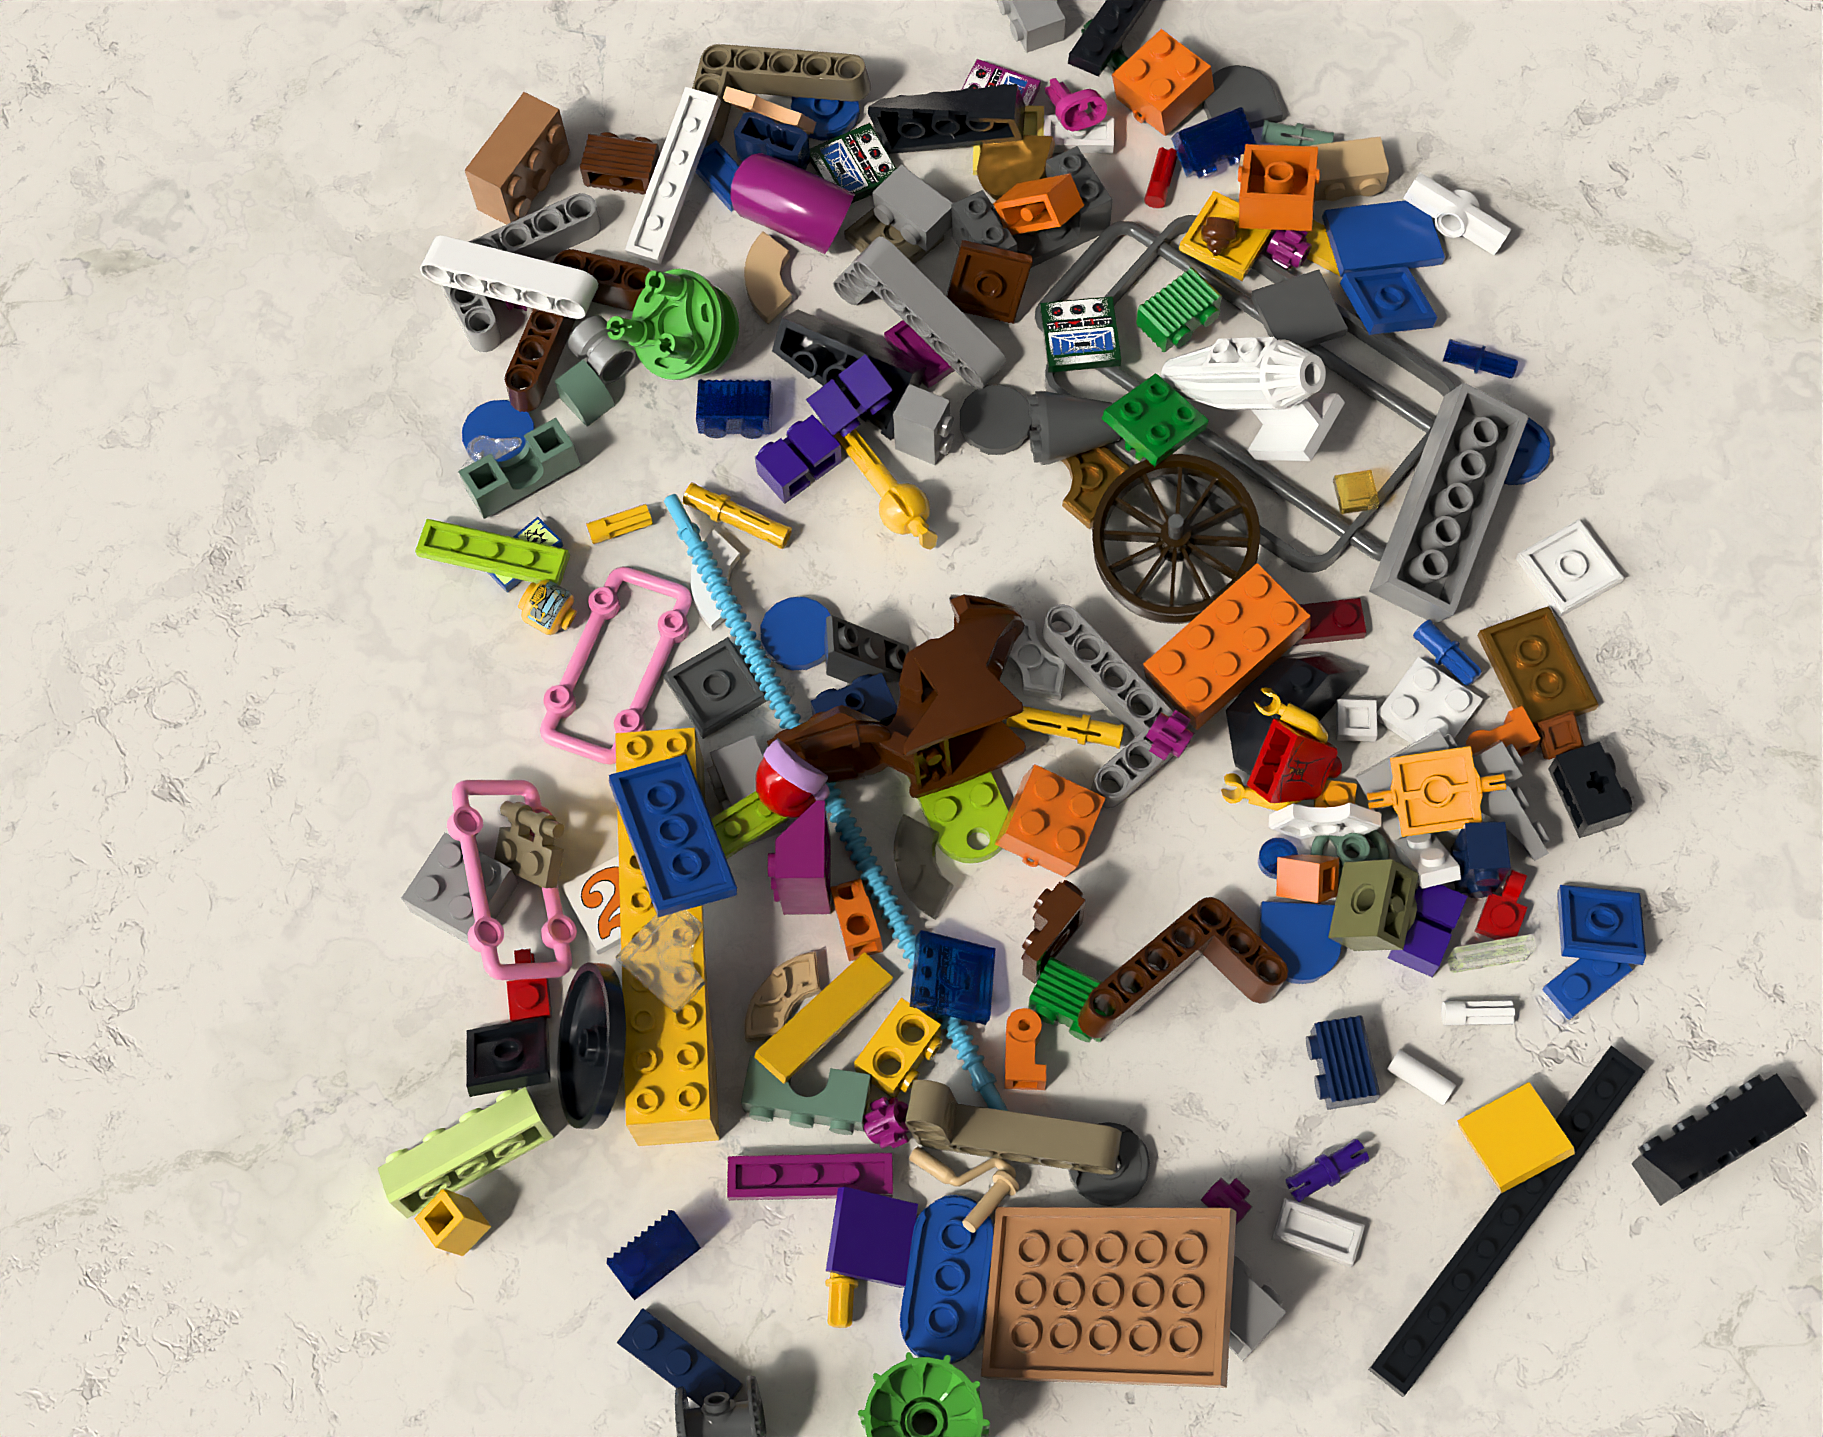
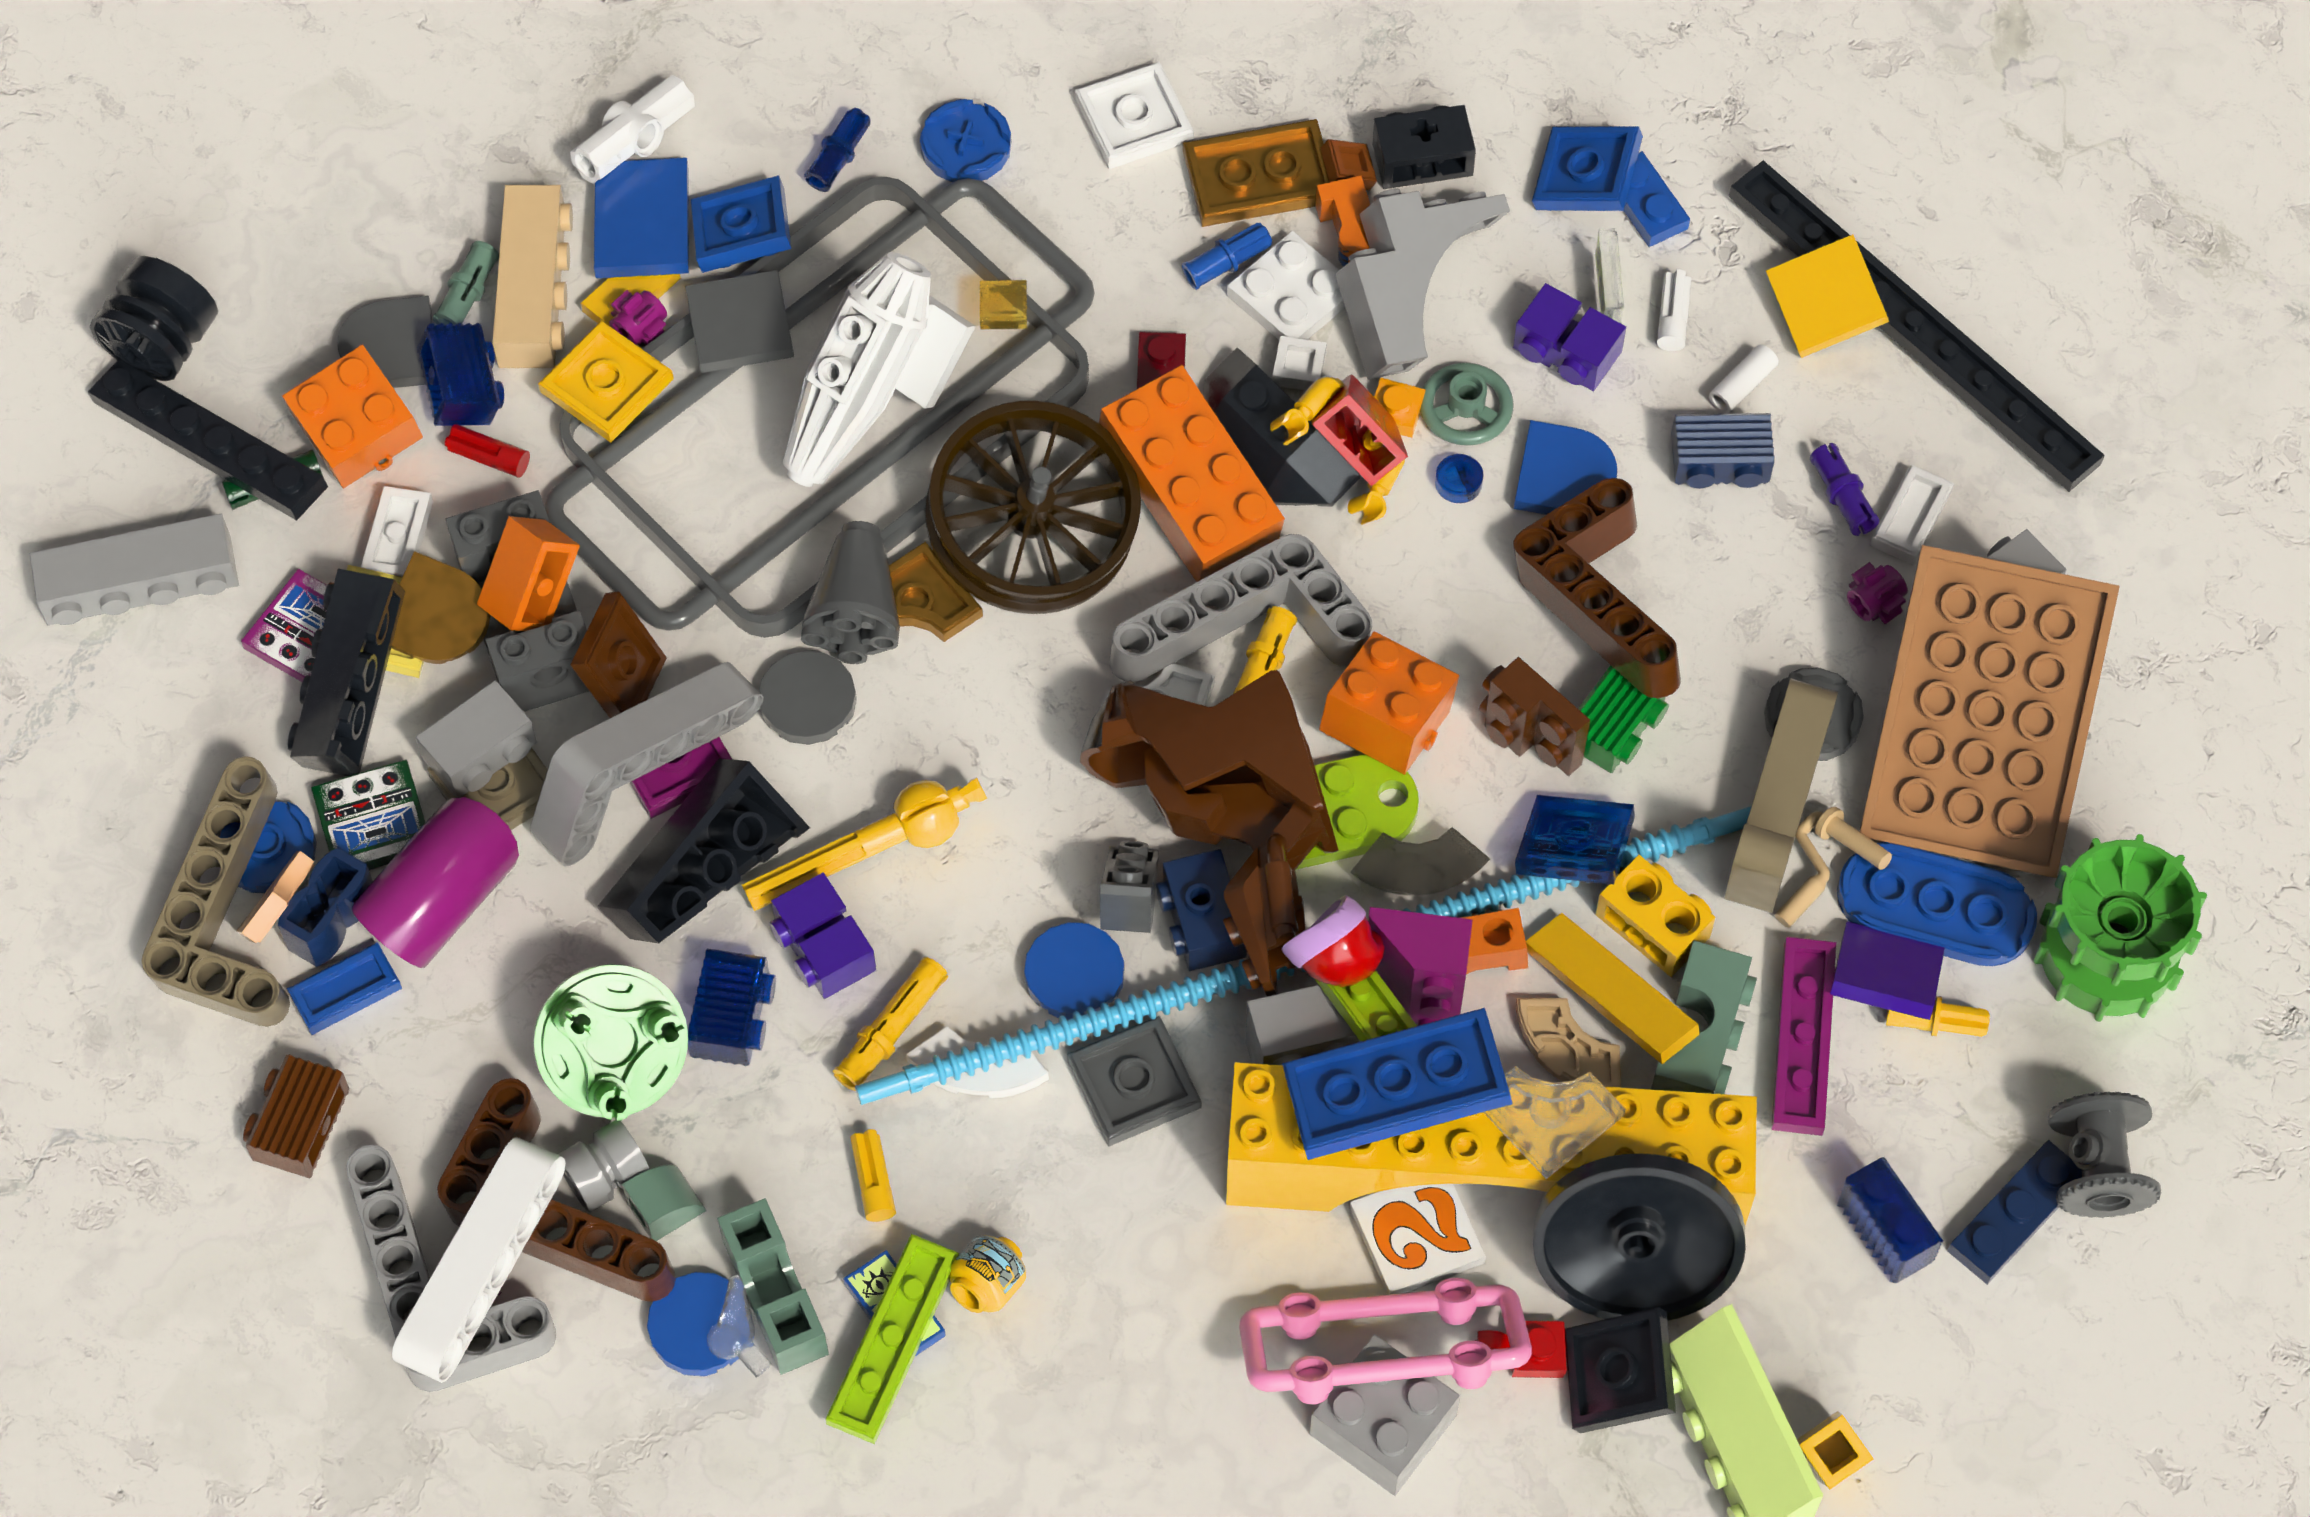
camera: 85 degrees left, 5 degrees down
(518, 159) = (269, 1242): medium nougat brick -> none
(527, 855) = (1354, 1316): dark tan plate -> none
(604, 606) = (1122, 1274): bright pink bar -> none
(673, 175) = (347, 1037): white plate -> none
(763, 277) = (523, 952): tan tile -> none
(864, 384) = (763, 825): dark purple piece -> none
(887, 1122) = (1749, 933): magenta gear -> none
(923, 425) = (815, 768): light grey brick -> none
(1022, 1037) = (1670, 781): orange leg -> none
(1072, 106) = (375, 526): dark pink piece -> none
(1080, 334) = (715, 570): tile -> none
(1154, 420) = (880, 489): green plate -> none
(1170, 735) = (1311, 541): magenta gear -> none
(1179, 310) = (712, 448): green brick -> none
(1218, 234) = (617, 381): reddish brown plate -> none
(1278, 187) = (573, 295): orange brick -> none
(1307, 877) = (1495, 445): brick -> none
(1312, 821) = (1431, 411): white tile -> none
(1374, 905) = (1524, 387): olive brick -> none
(1428, 858) = (1493, 316): white plate -> none
(1436, 790) = (1424, 279): light orange plate -> none
(1449, 503) = (1046, 204): light grey brick -> none
(1482, 858) = (1503, 261): dark blue brick -> none
(1501, 914) = (1556, 264): red plate -> none
(1718, 1138) = (1848, 112): black wedge -> none

